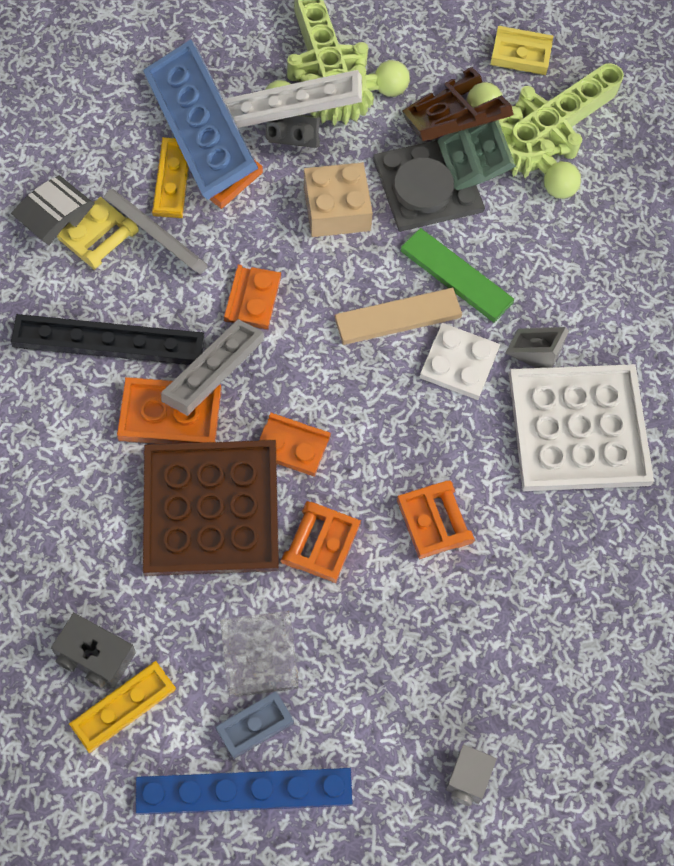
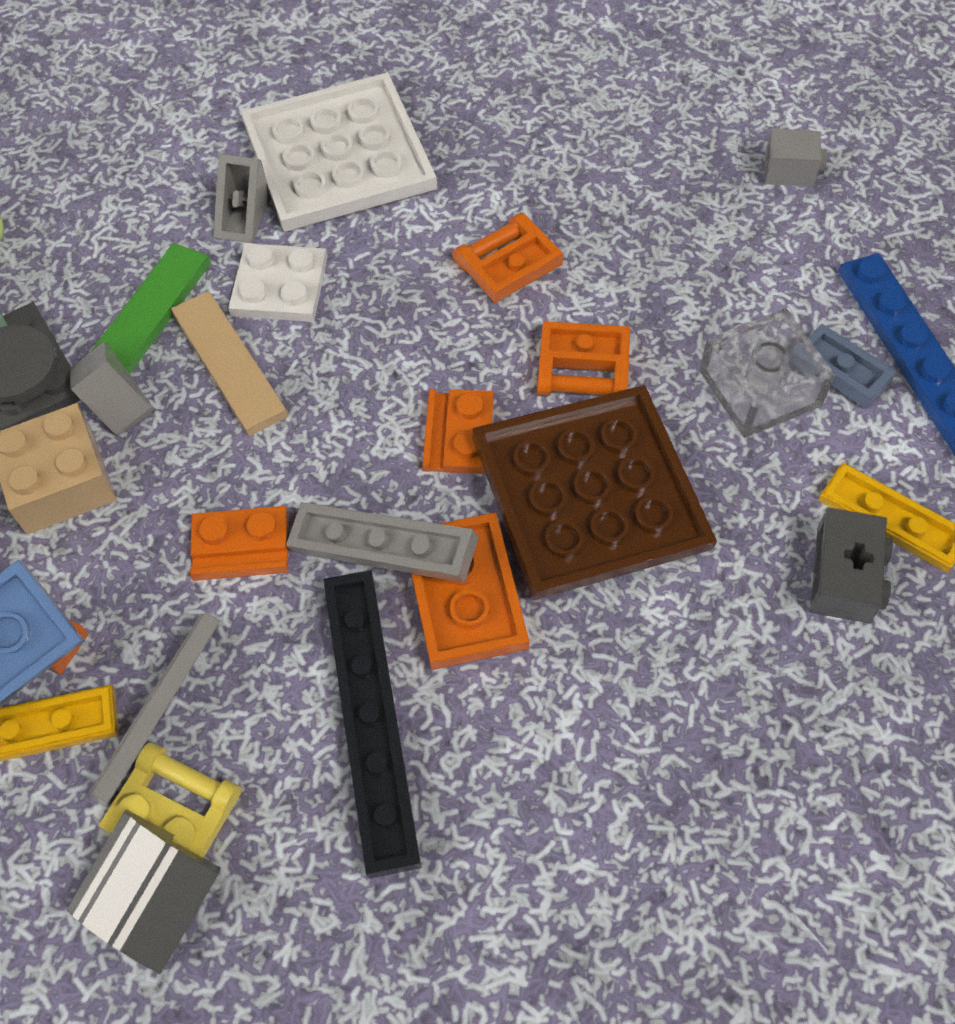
camera: 100 degrees left, 5 degrees down
(391, 237) = (109, 389): none -> light grey slope

